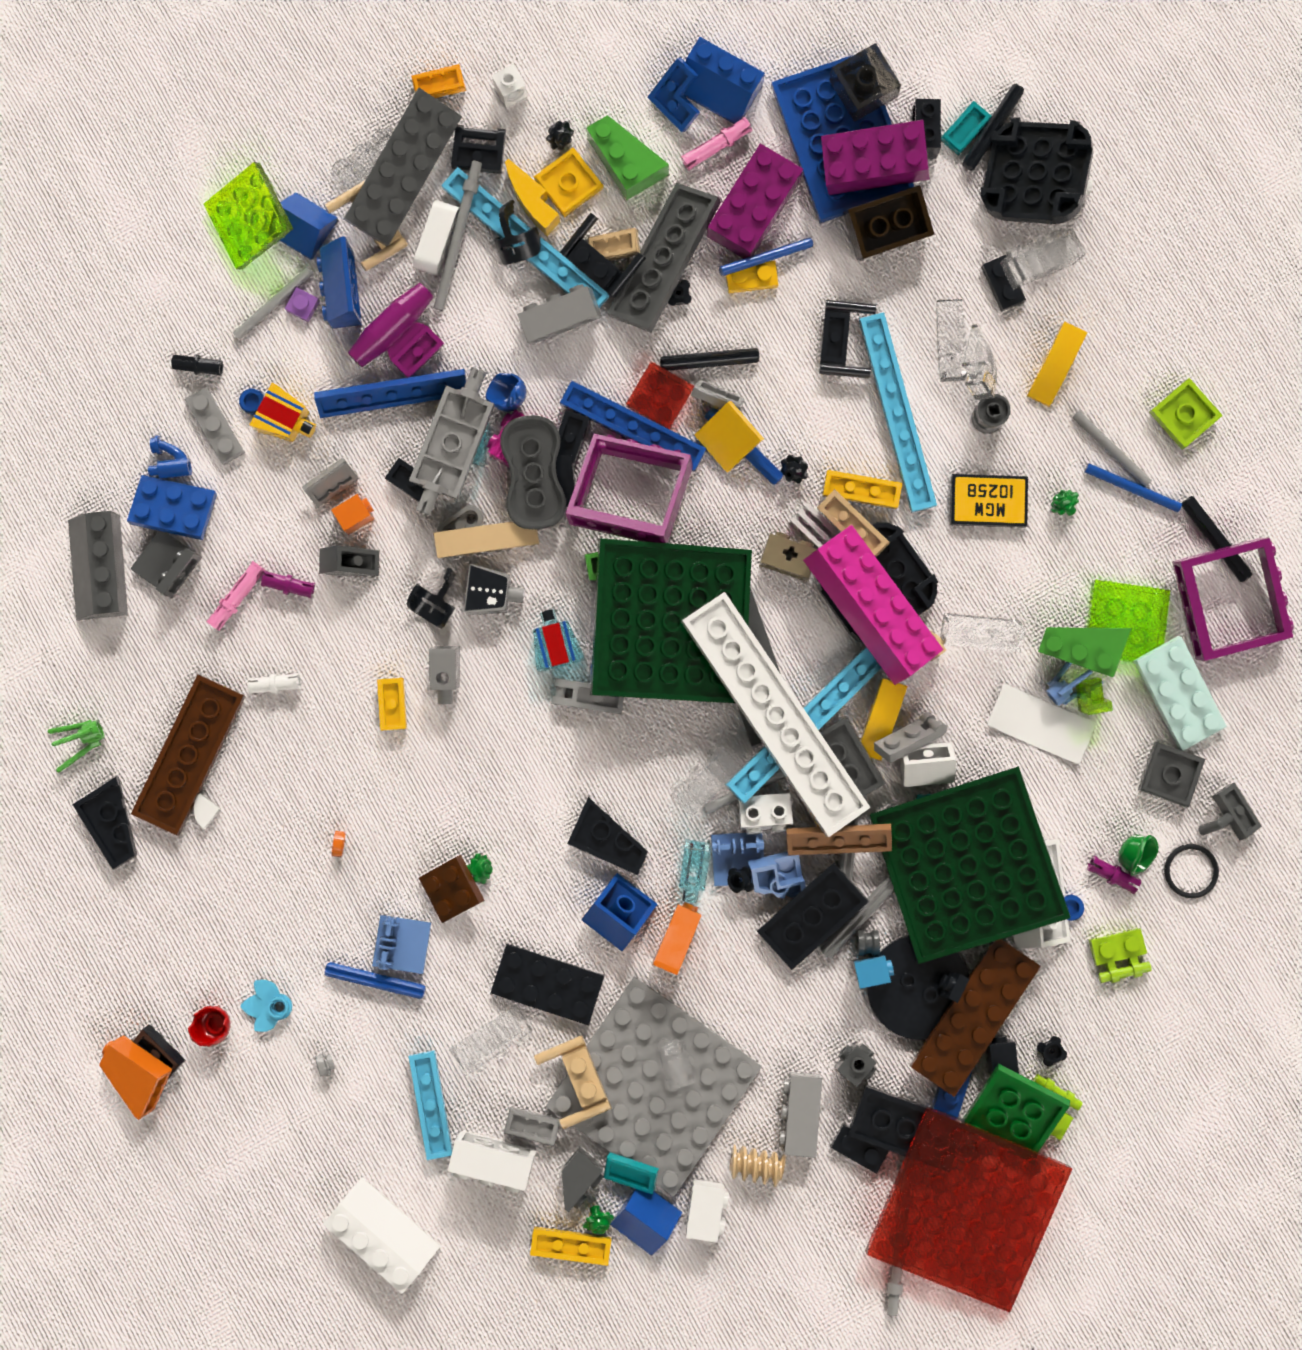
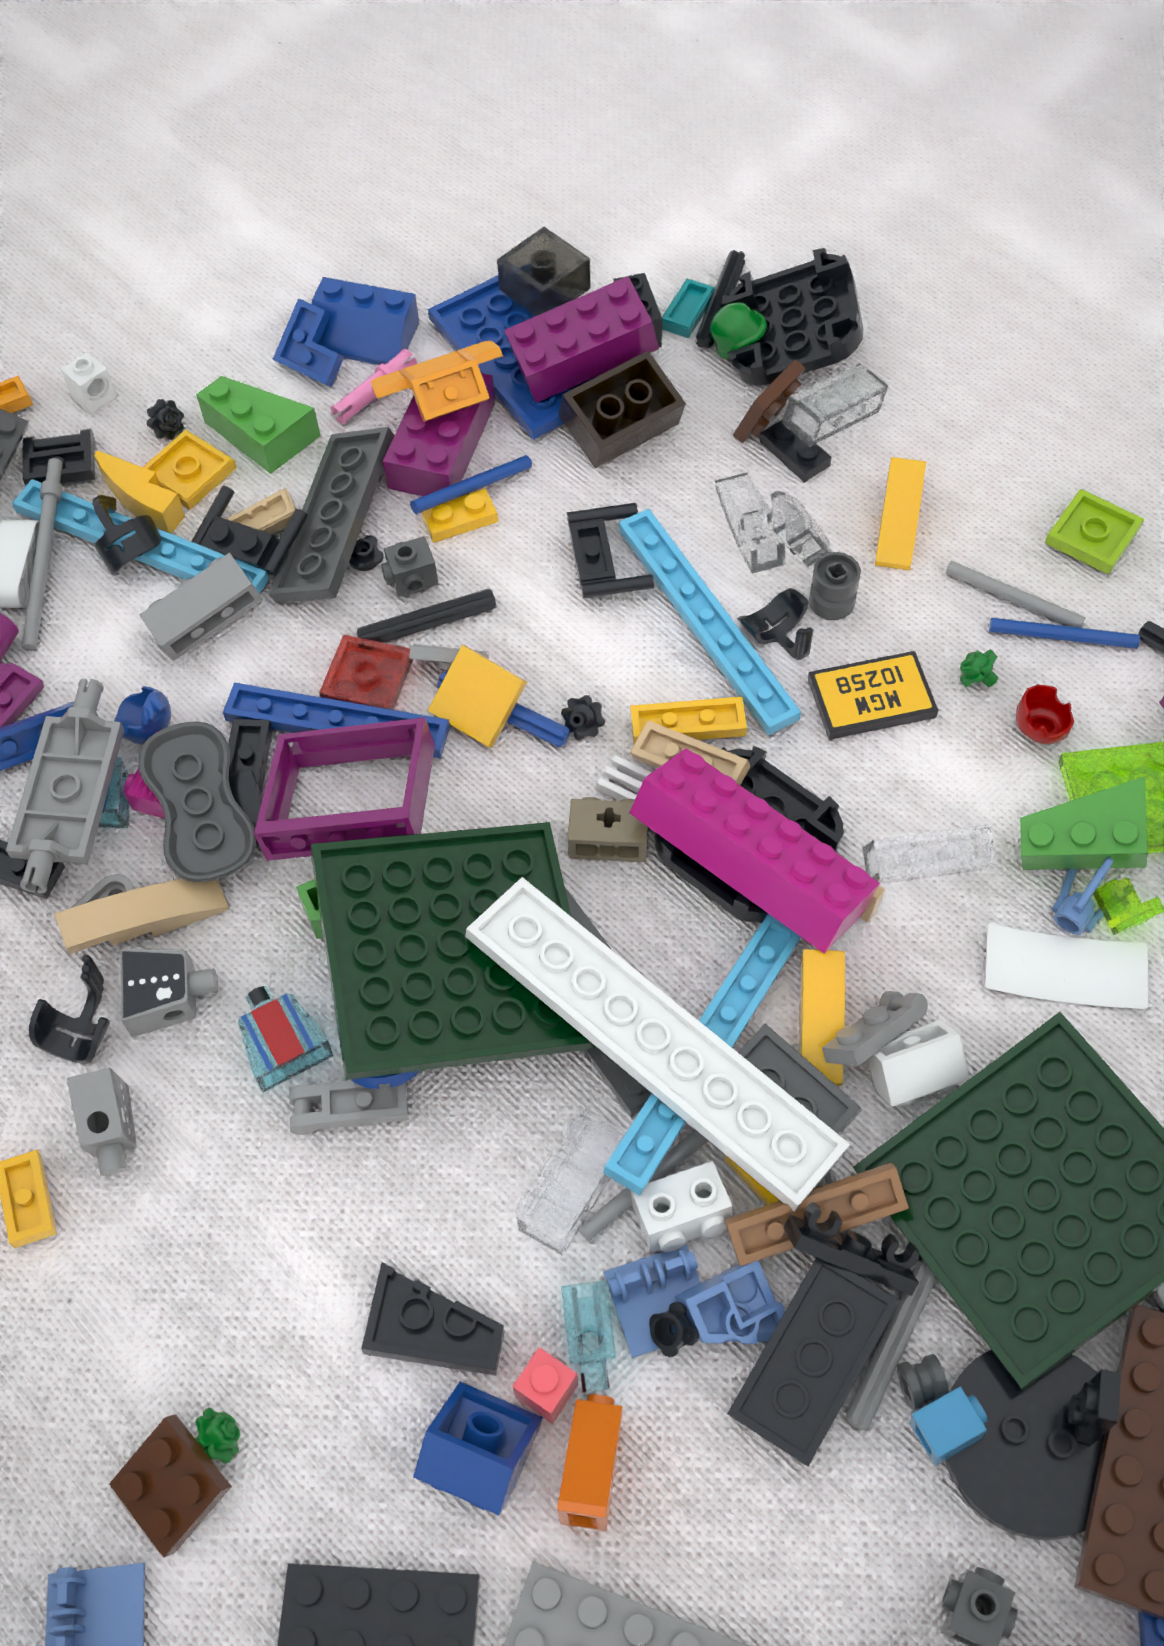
camera: 15 degrees left, 25 degrees down
(663, 891) = (545, 1385): none -> coral brick
(707, 318) = (409, 566): none -> dark grey brick
(765, 170) = (442, 382): none -> light orange plate
(852, 867) = (853, 1250): none -> black plate
(950, 415) = (789, 604): none -> black helmet
(990, 250) = (770, 402): none -> reddish brown plate
(994, 167) = (736, 327): none -> green helmet
(1093, 551) = (1043, 716): none -> red hair

